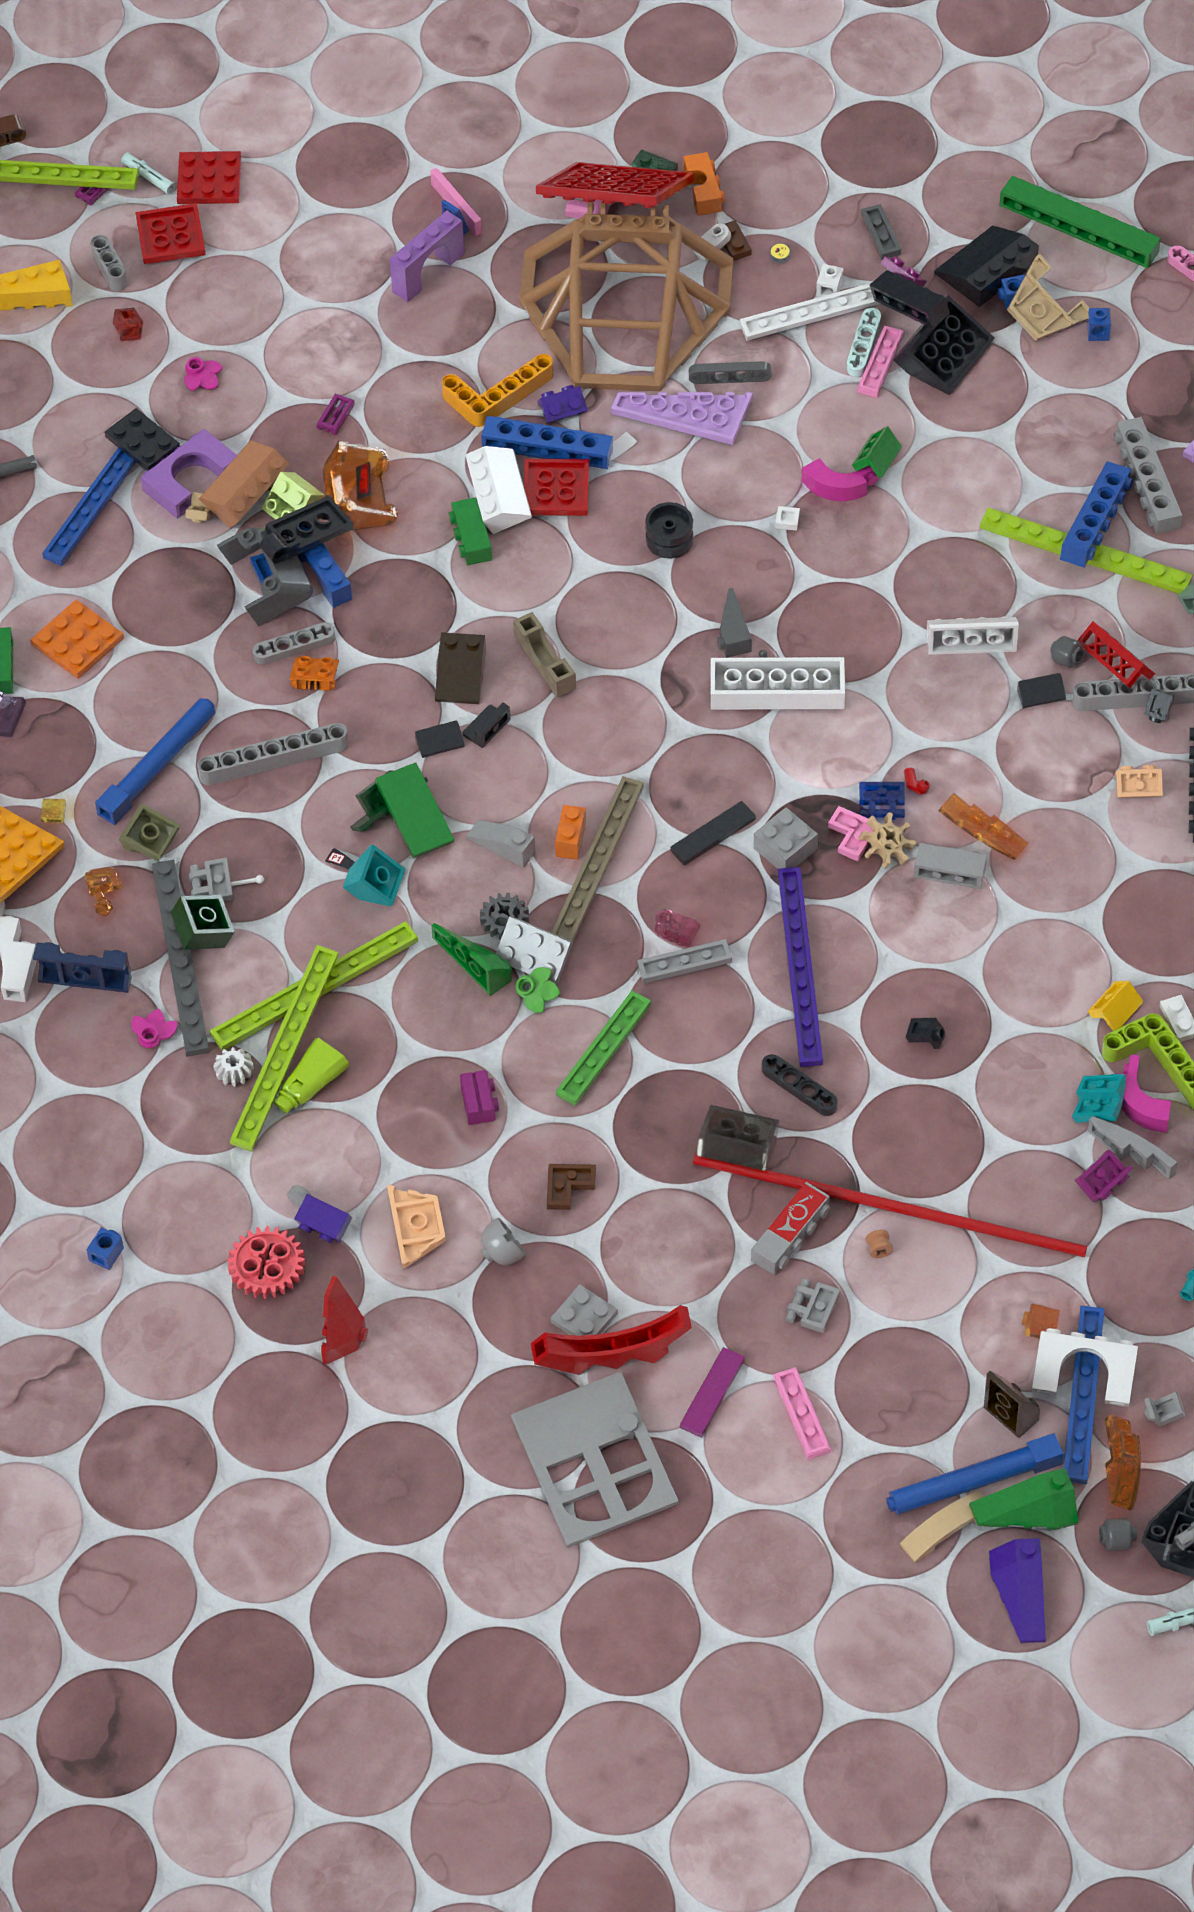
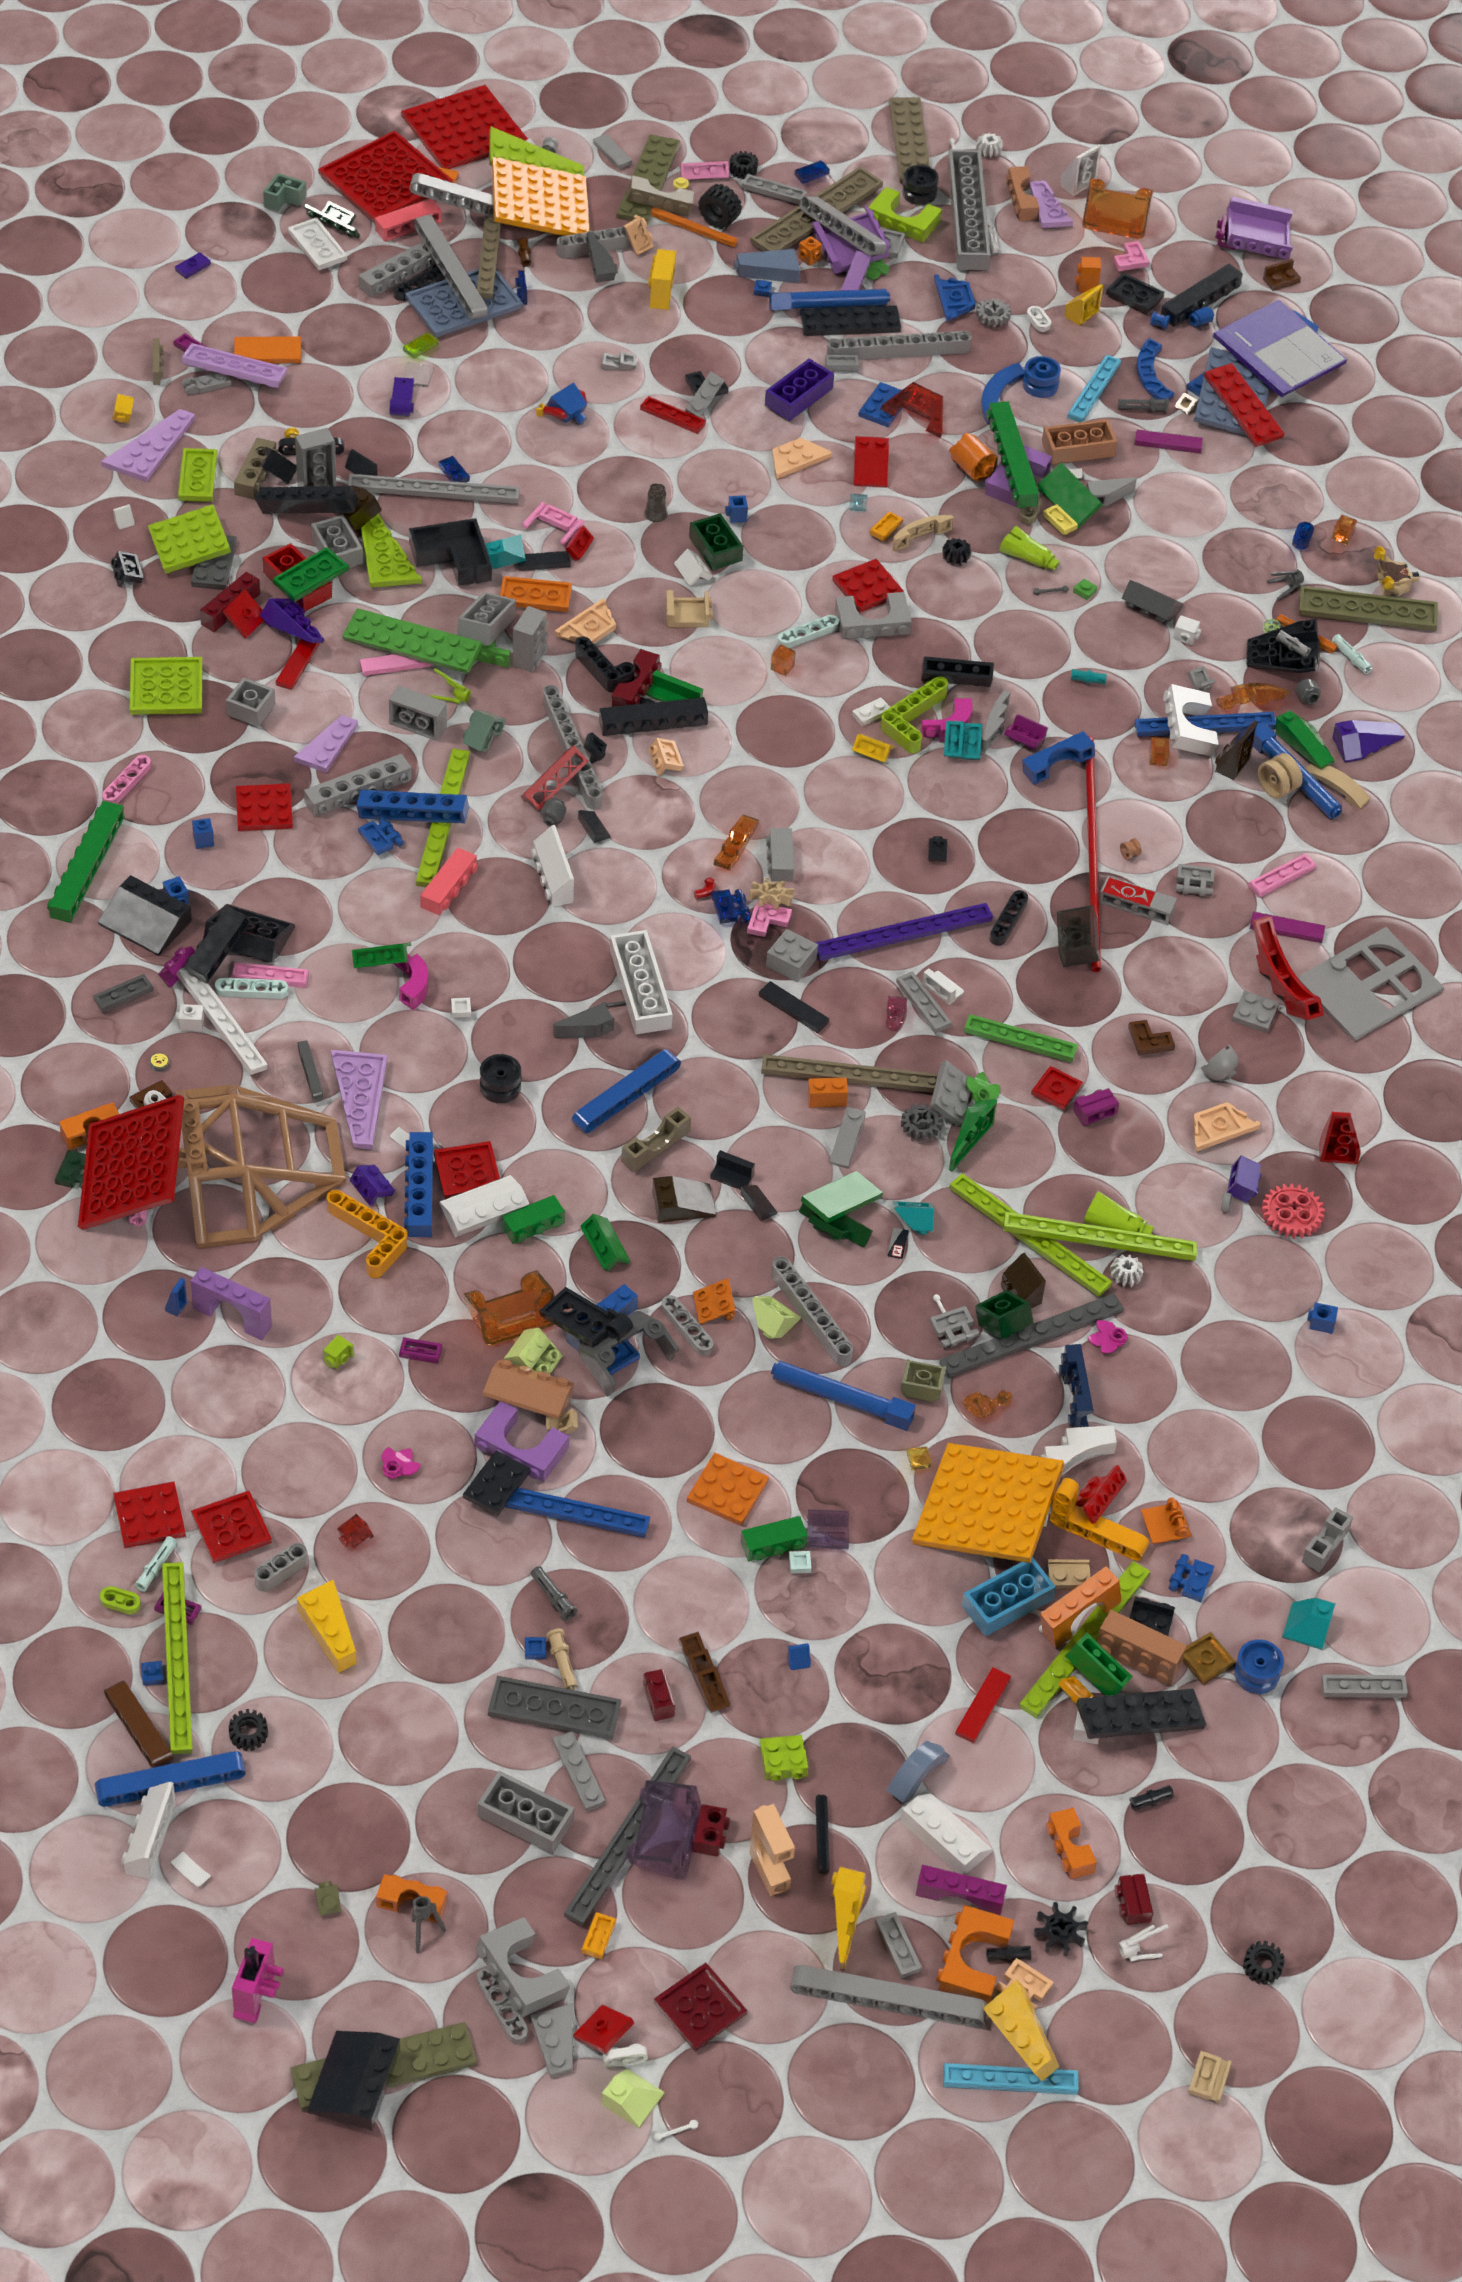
camera: 110 degrees left, 5 degrees down
(31, 154) = (152, 1673): none -> blue tile
(114, 145) = (121, 1600): none -> lime plate
(241, 957) = (1024, 1280): none -> dark brown slope
(278, 715) = (773, 1316): none -> yellowish green slope
(350, 342) = (337, 1352): none -> lime brick
(363, 480) = (502, 1307): sticker -> none
(424, 592) = (604, 1241): none -> green panel
(451, 195) = (146, 1306): bright pink tile -> none
(519, 1066) = (1057, 1088): none -> red plate
(627, 646) = (626, 1091): none -> blue beam
(706, 988) = (942, 986): none -> white panel
(958, 1442) = (1280, 776): none -> tan wheel
(978, 535) = (448, 881): none -> coral brick
(1038, 310) = (194, 872): tan wing -> none
(1041, 1175) = (1075, 748): none -> blue arch
(1064, 480) = (376, 838): none -> blue plate
(1135, 389) = (264, 807): none -> red plate

